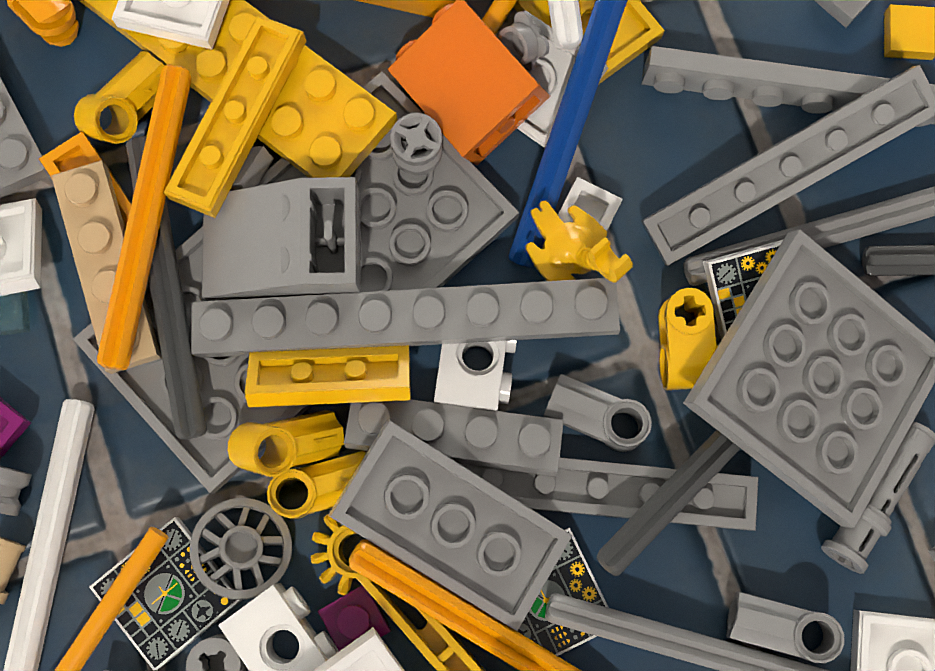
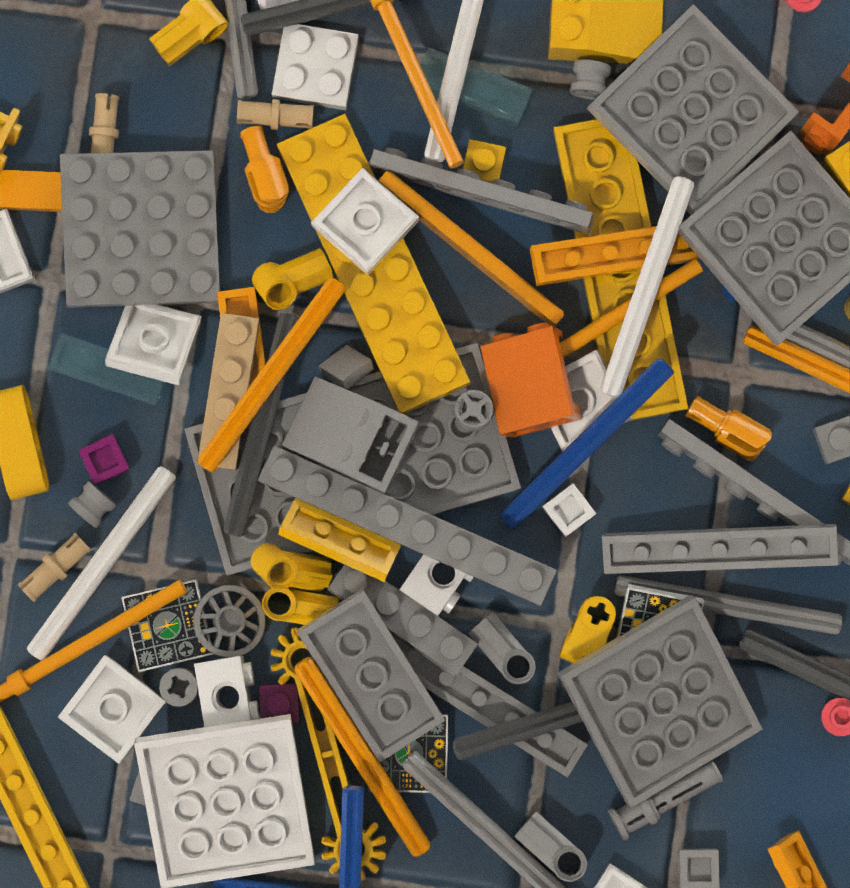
camera: 35 degrees right, 5 degrees up
(235, 116) = (362, 333): yellow tile -> none
(525, 40) = (581, 375): light grey plate -> none
(573, 246) = (542, 533): yellow piece -> none
(724, 31) = (731, 428): none -> light orange arm

